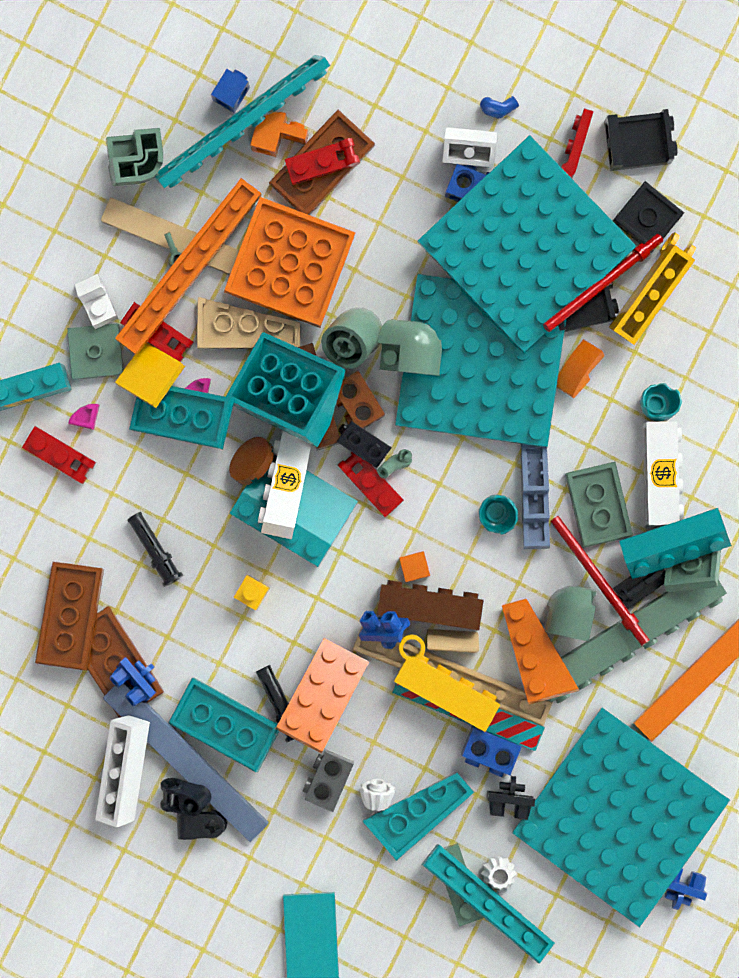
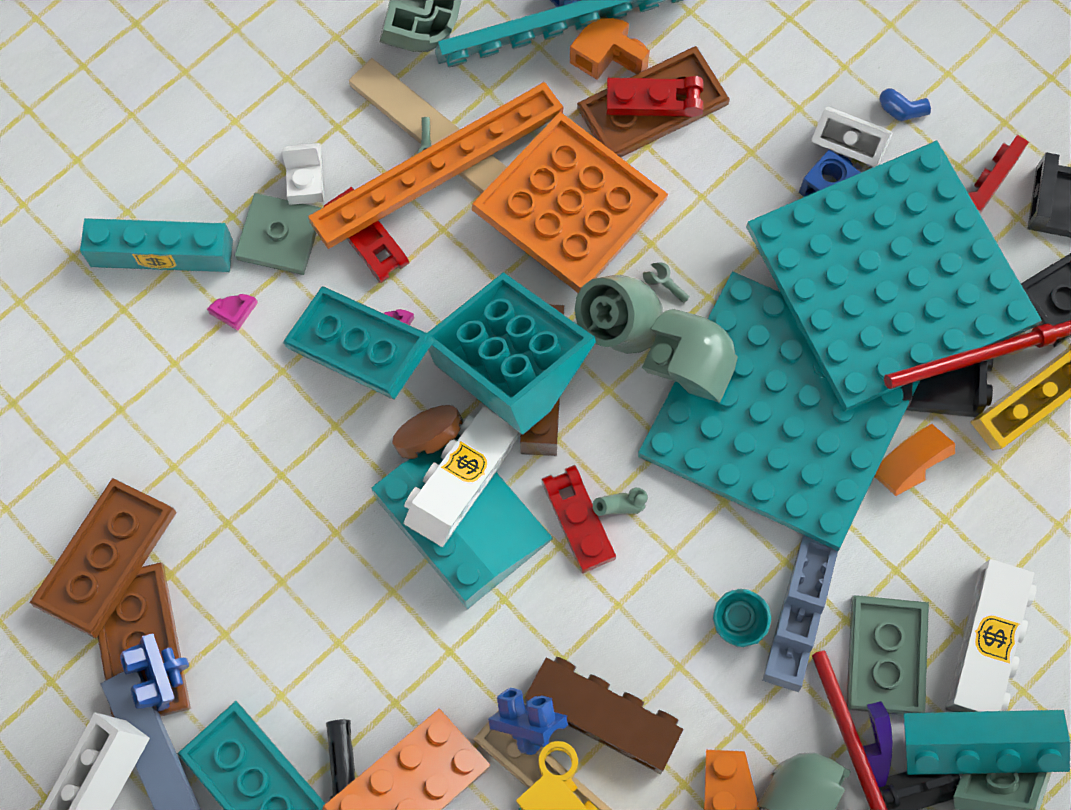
camera: 20 degrees right, 15 degrees down
(58, 454) = (178, 344): red plate -> none
(150, 375) = (336, 280): yellow tile -> none
(159, 562) = (253, 525): black pin -> none
(238, 328) = (469, 262): tan wing -> none
(251, 592) = (362, 608): yellow brick -> none
(363, 398) = (606, 404): dark orange brick -> none
(363, 443) = (586, 458): black hinge -> none
(372, 295) = (664, 278): none -> sand green hand
(414, 566) = (600, 653): orange tile -> none
(452, 640) = (619, 777): tan slope -> none
(610, 570) = (880, 752): none -> dark purple slope
(660, 402) = (1016, 541): teal hair -> none

